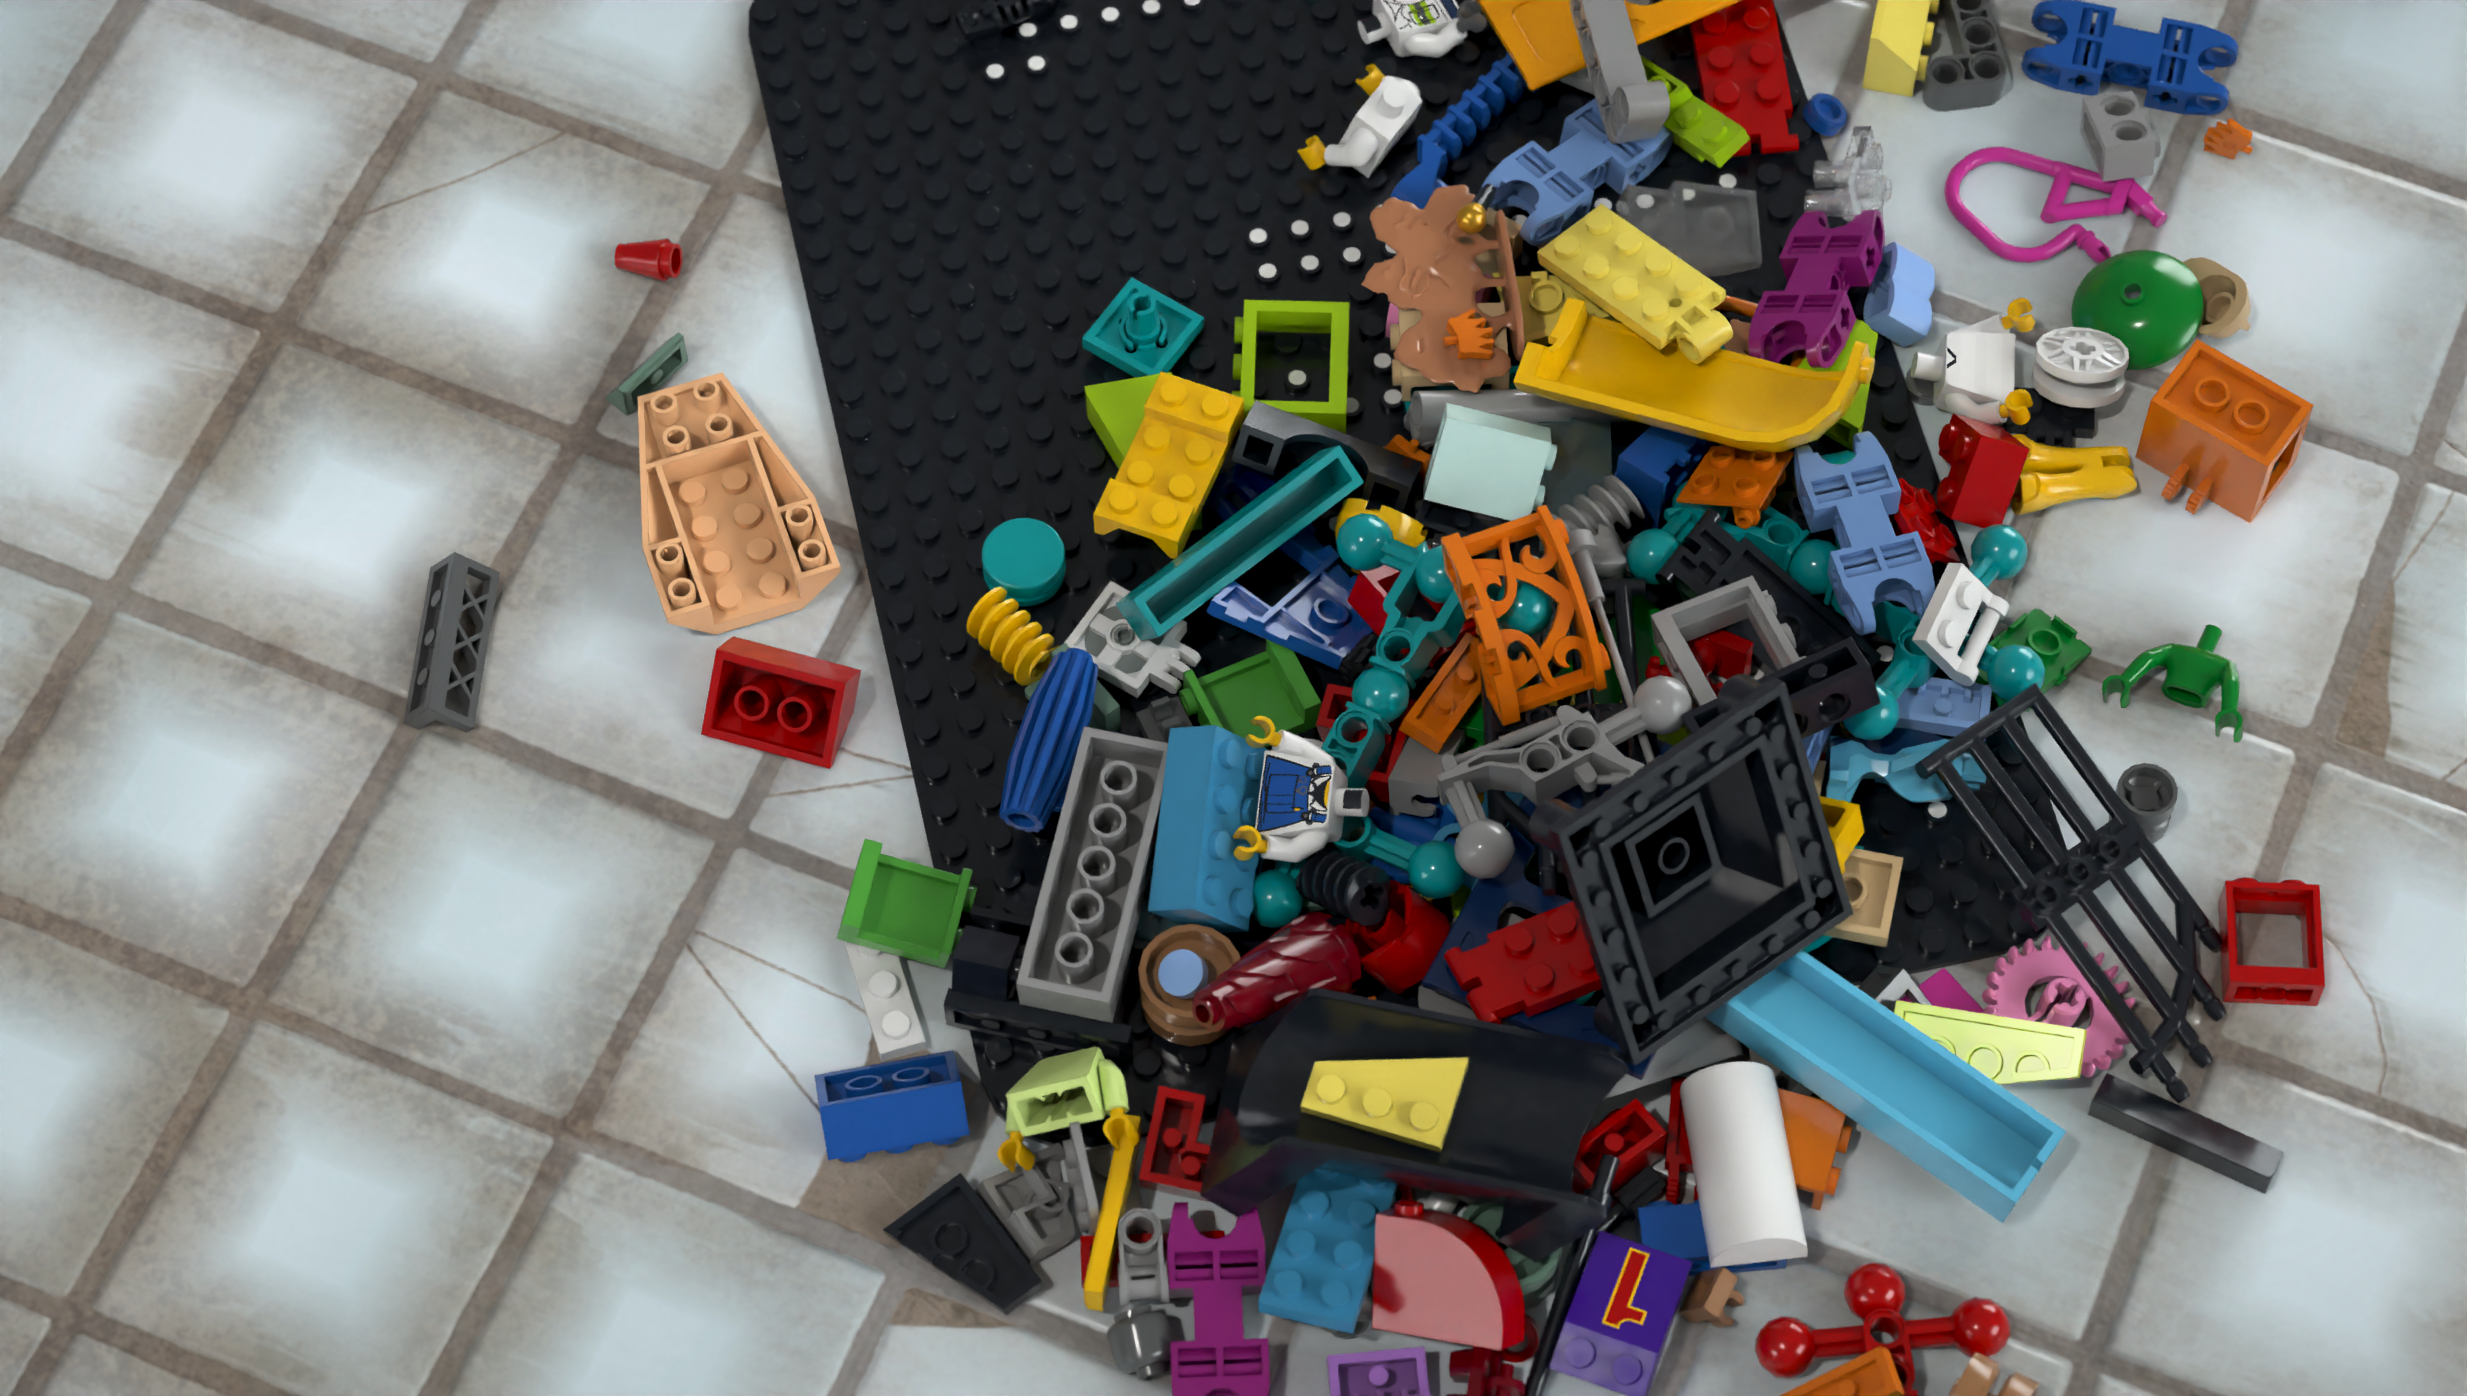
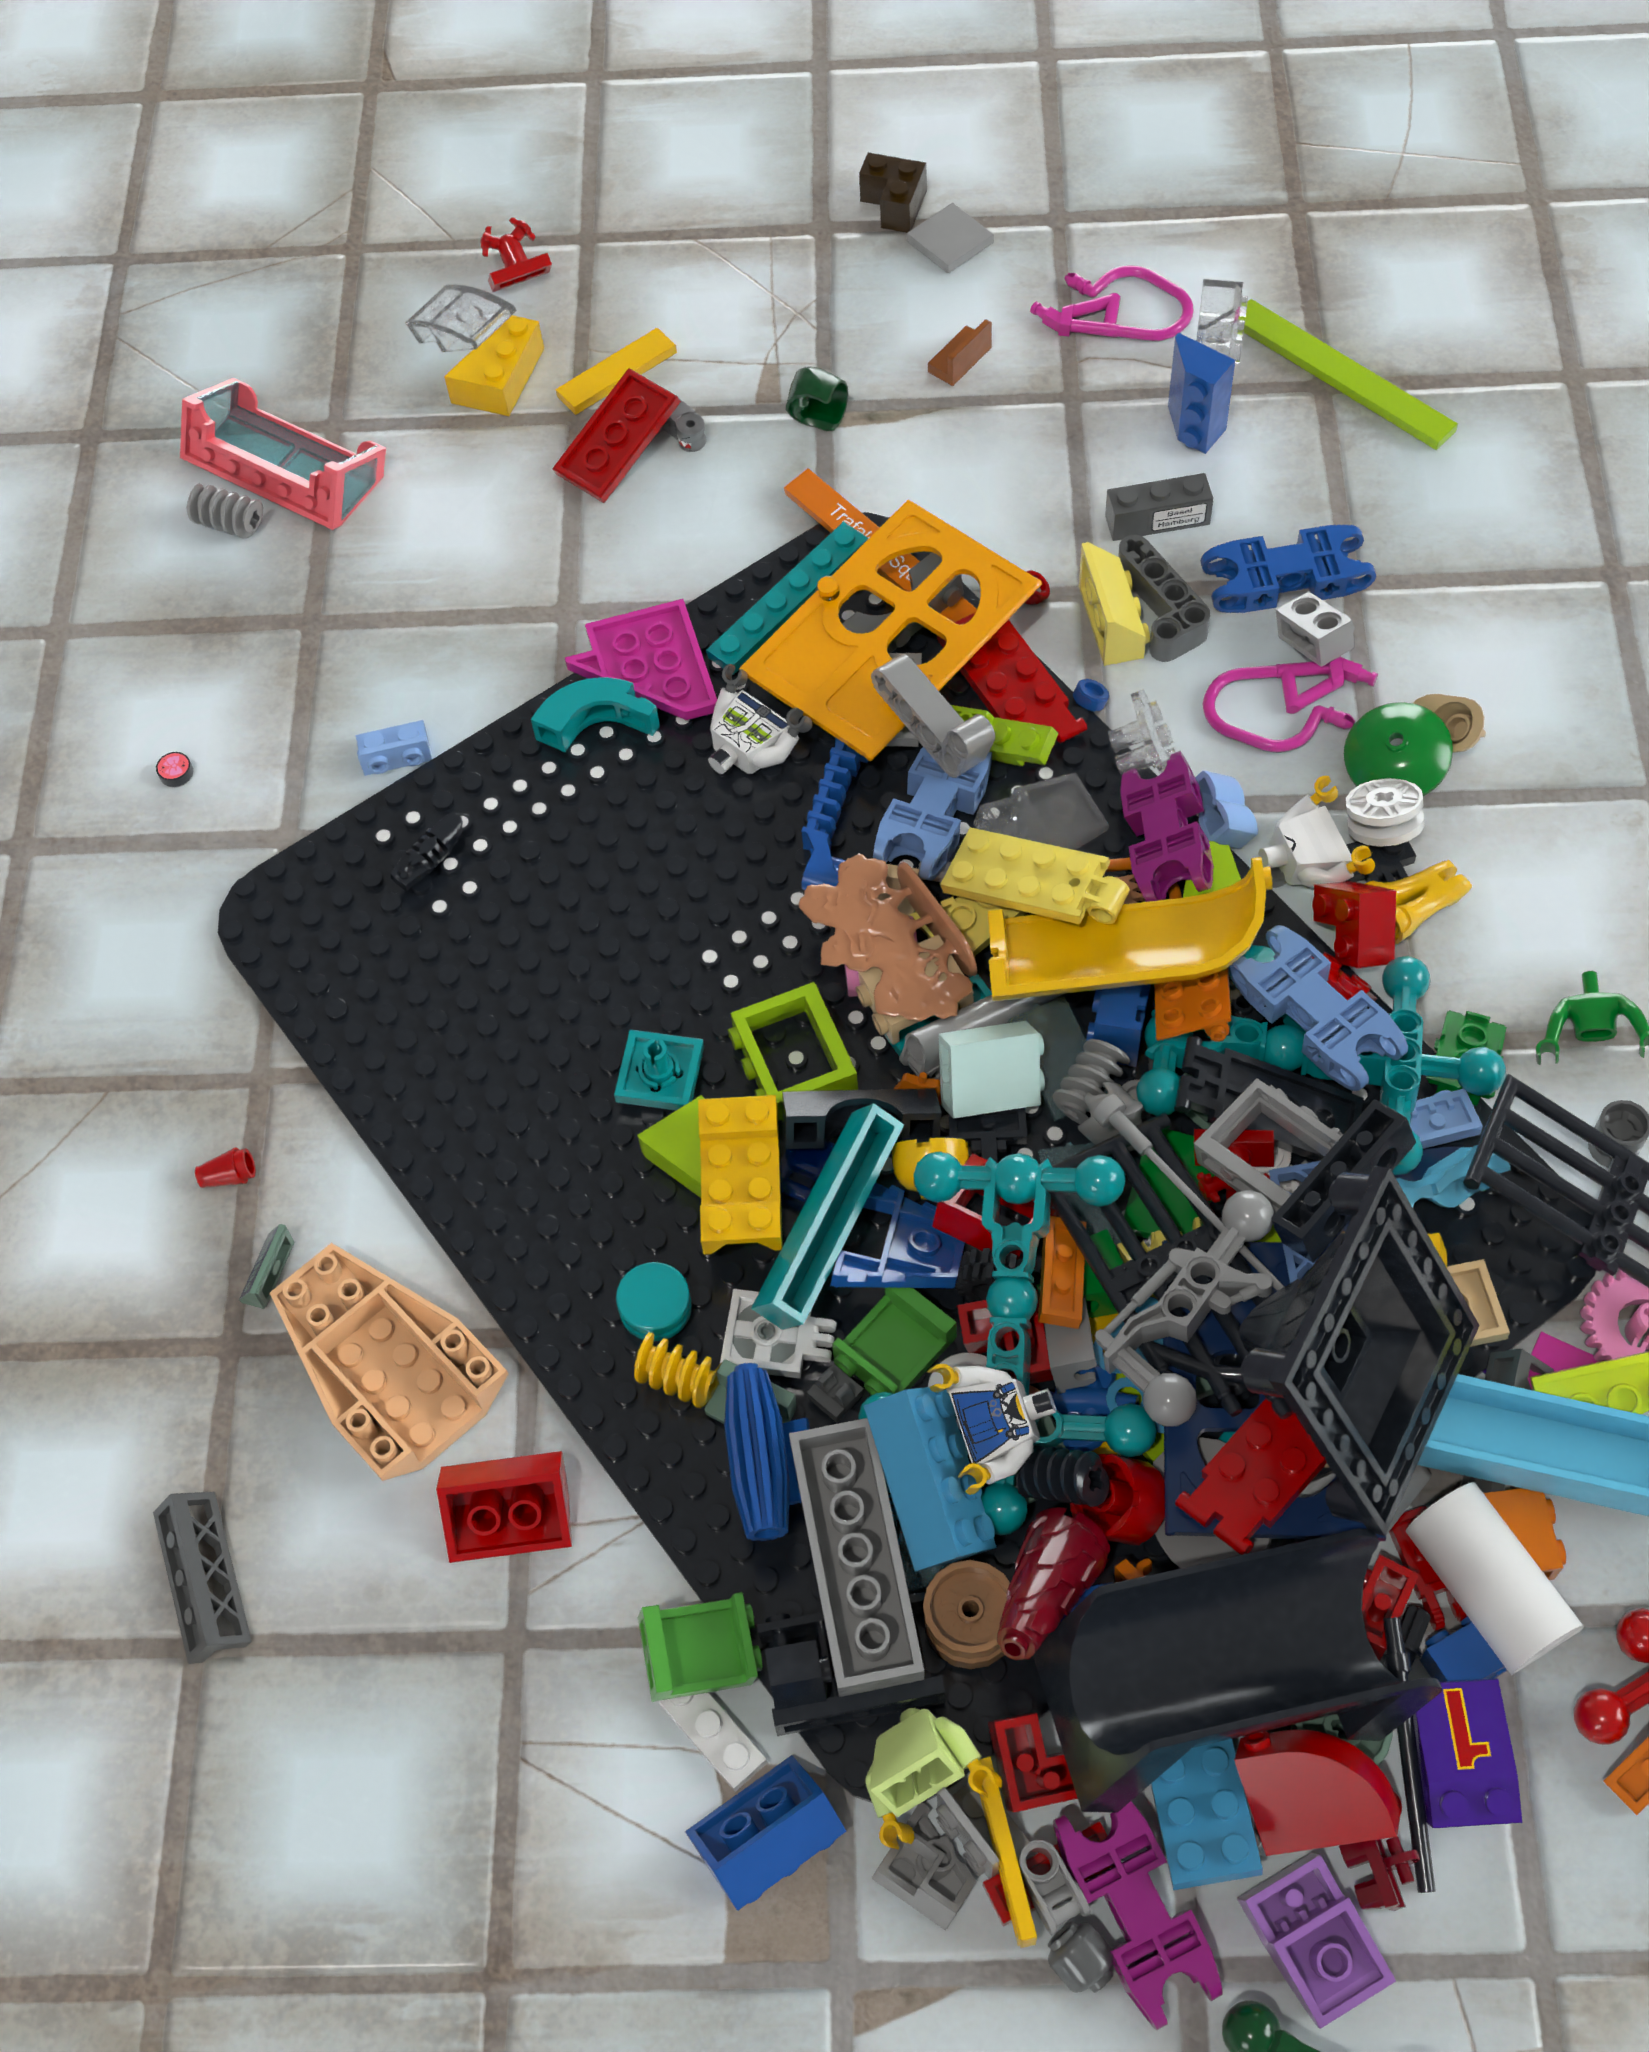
camera: 20 degrees left, 0 degrees up
(968, 1245) = (890, 1933): black wing -> none
(1183, 973) = (967, 1612): light blue tile -> none
(1373, 129) = (764, 836): white torso -> none
(1389, 1097) = (1199, 1652): light yellow wing -> none
(1470, 336) = (929, 973): orange piece -> none
(1470, 582) = (1111, 1247): orange fence -> none
(1472, 217) = (882, 876): pearl gold piece -> none
(1708, 1296) = (1520, 1697): medium nougat tile -> none
(1949, 619) = (1428, 1050): white plate -> none
(2222, 432) = (1520, 820): orange piece -> none
(2228, 139) = (1392, 601): orange piece -> none

